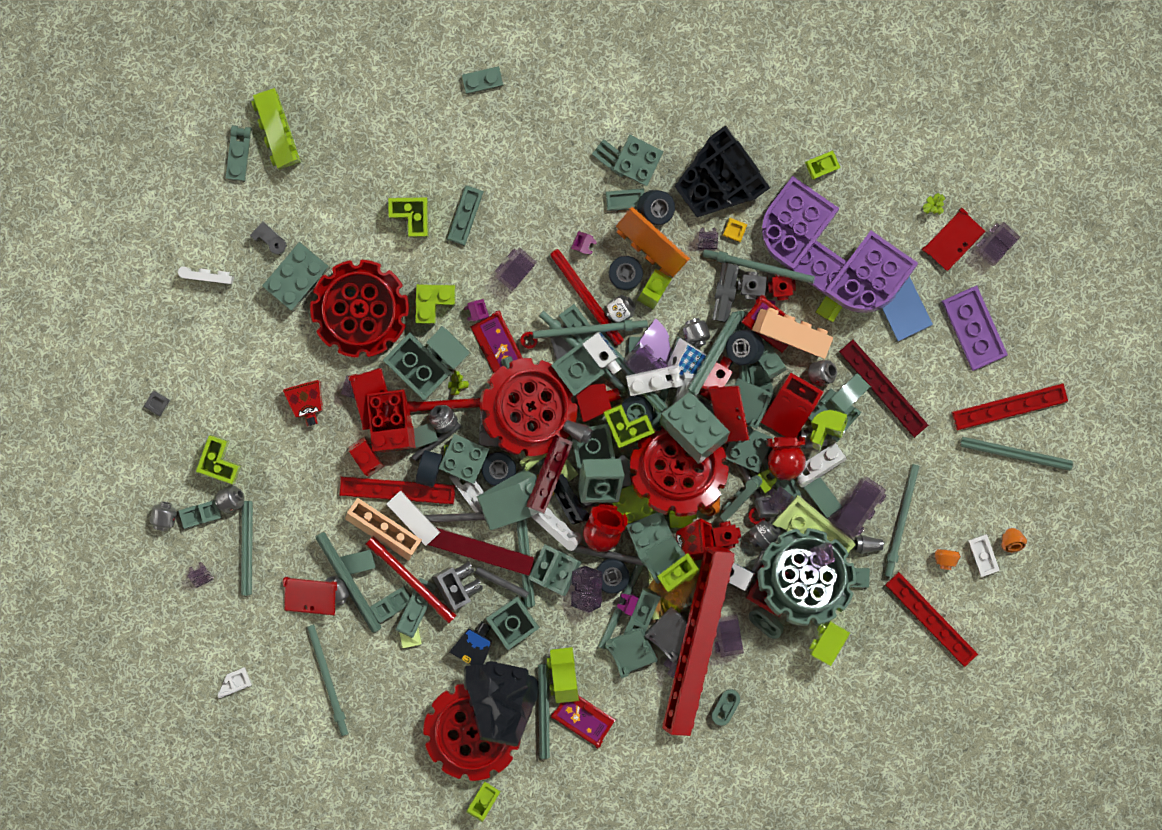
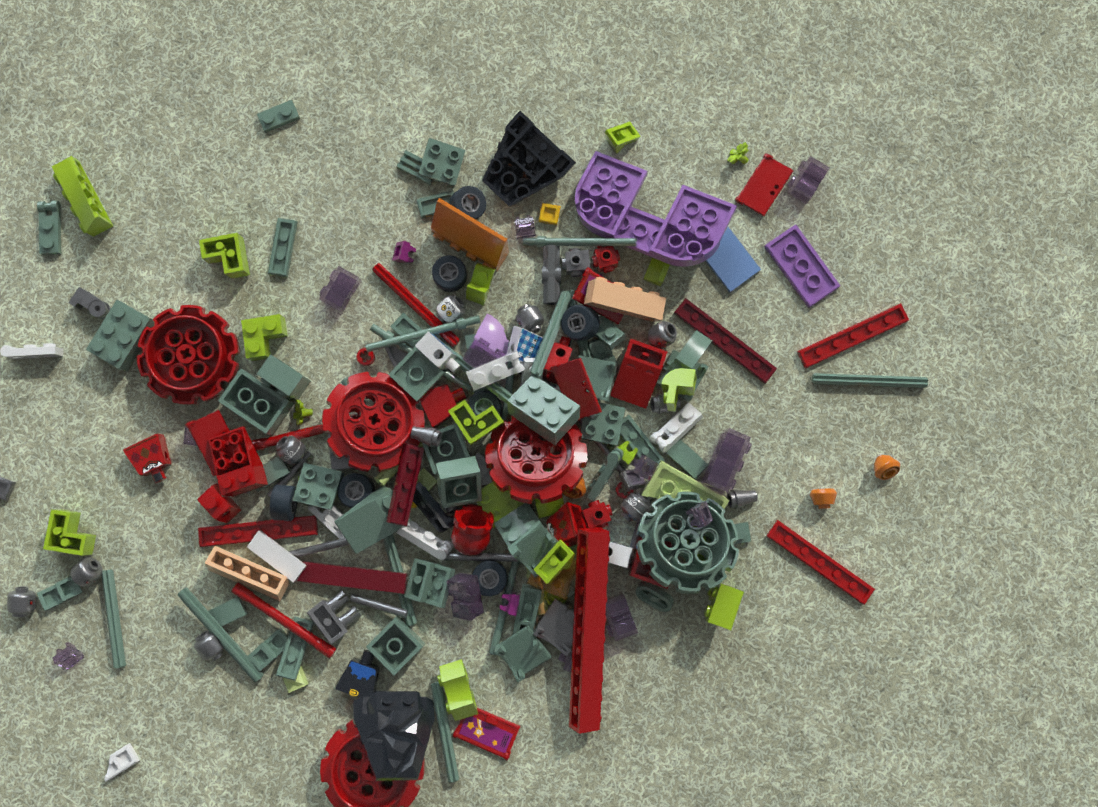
camera: 10 degrees left, 5 degrees down
(316, 595) = (183, 654): red door -> none
(338, 715) = (234, 776): sand green bar -> none
(477, 309) = (309, 336): magenta tile -> none
(495, 340) = (331, 361): door -> none
(726, 707) = (630, 691): sand green plate -> none
(786, 458) = (643, 425): red tile -> none
(893, 556) = (769, 506): sand green bar -> none
(983, 555) = (859, 487): white plate -> none

